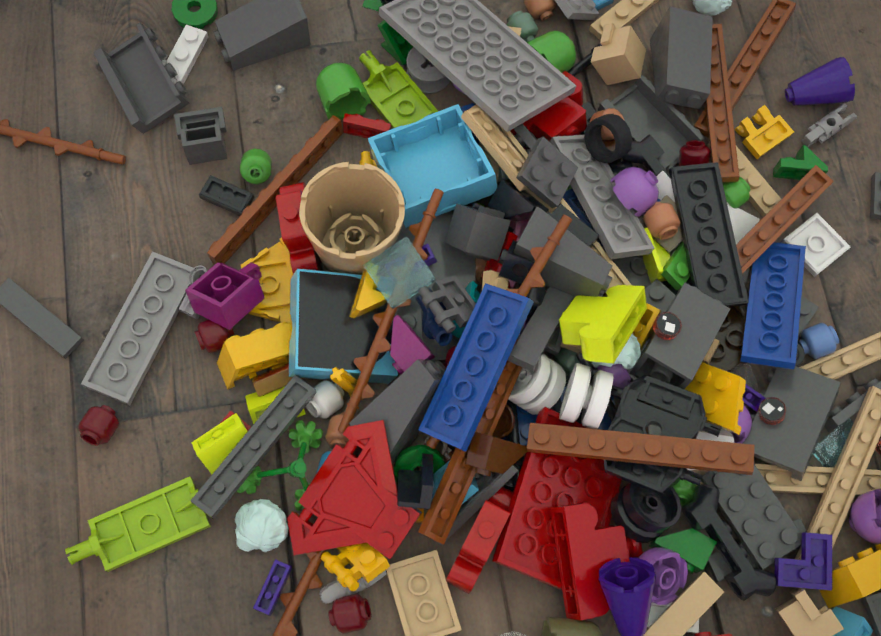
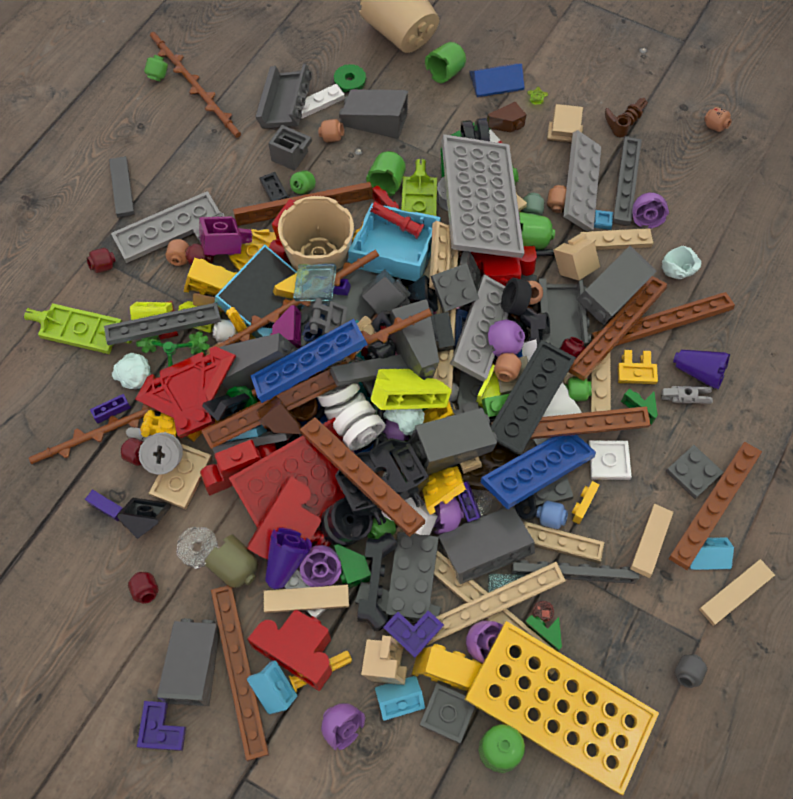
camera: 45 degrees right, 5 degrees down
(184, 348) = (176, 252): none -> nougat head
(232, 84) = (331, 130): none -> nougat head
(405, 587) = (151, 459): none -> light grey piece
(424, 137) = (405, 224): none -> red pin
(667, 325) = (442, 420): tile -> none
(772, 411) = (475, 527): tile -> none
(836, 306) = (580, 509): none -> yellow plate

